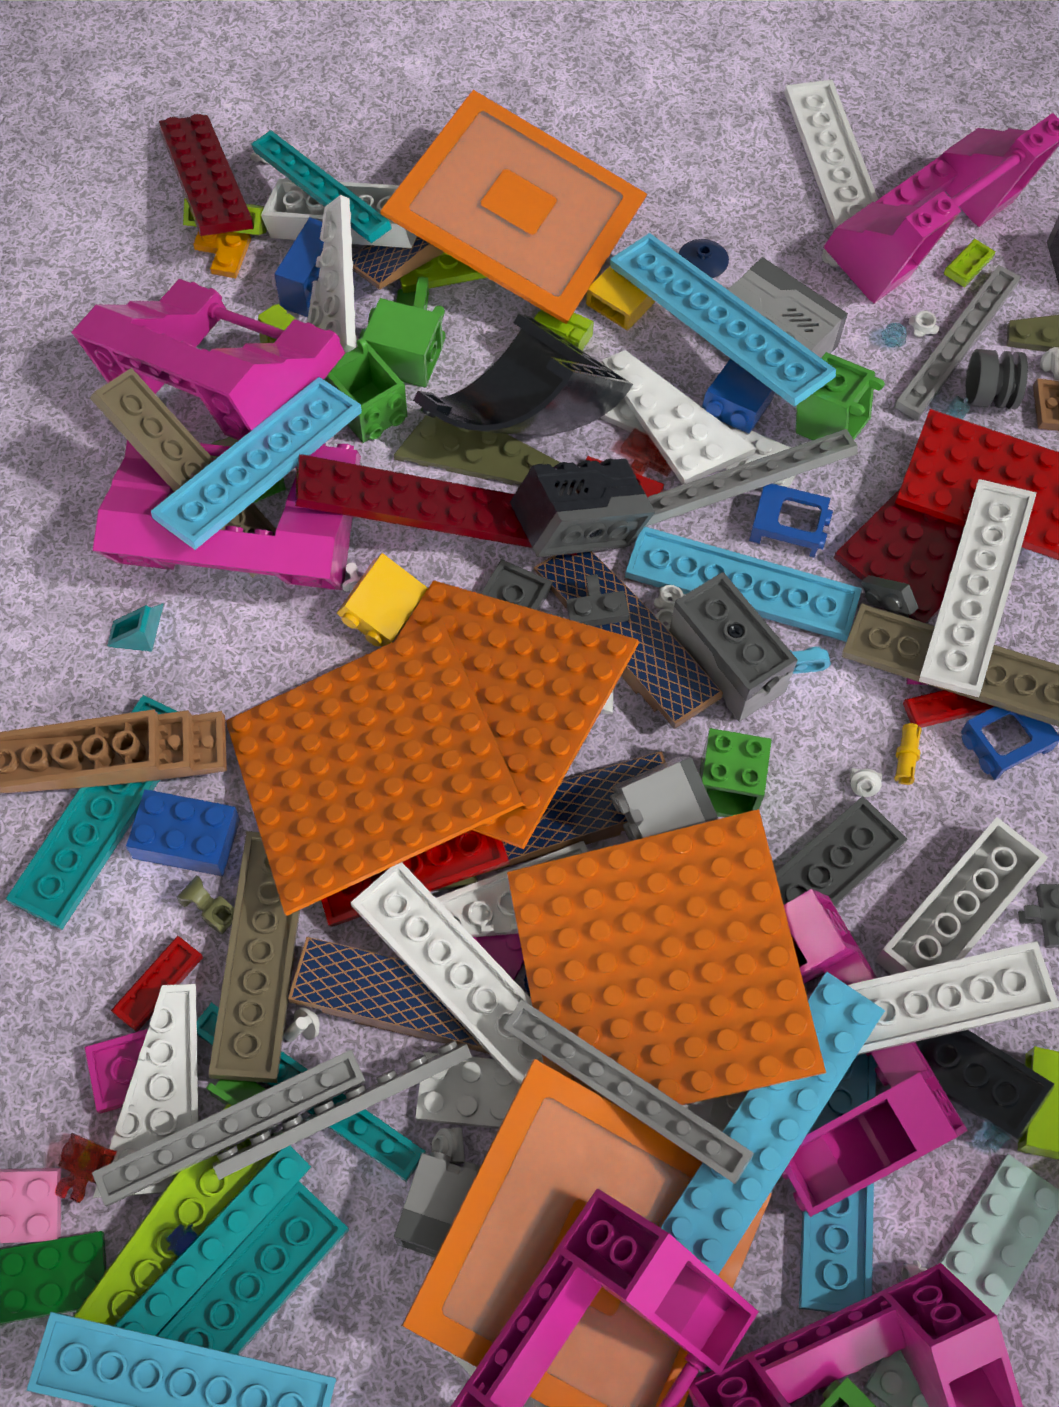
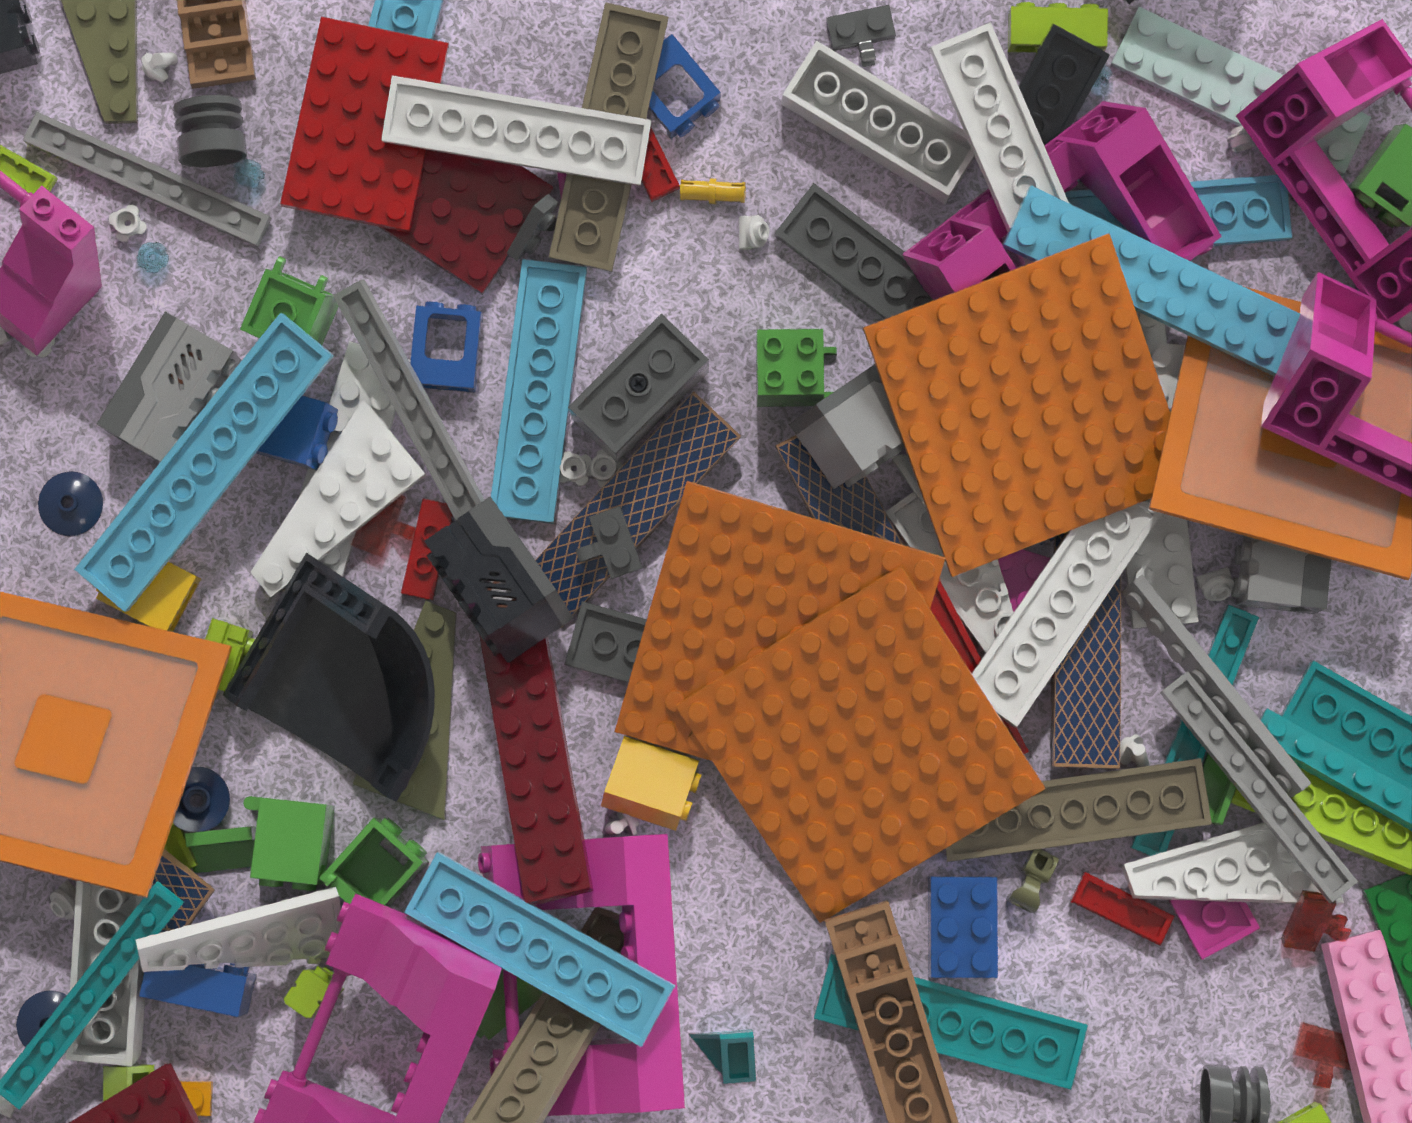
camera: 100 degrees left, 20 degrees up
(181, 1239) = (1363, 807): clear blue plate -> none
(454, 284) = (215, 801): none -> dark blue dish
(629, 1092) = (1154, 418): light grey plate -> none
(811, 660) = (621, 303): medium azure plate -> none

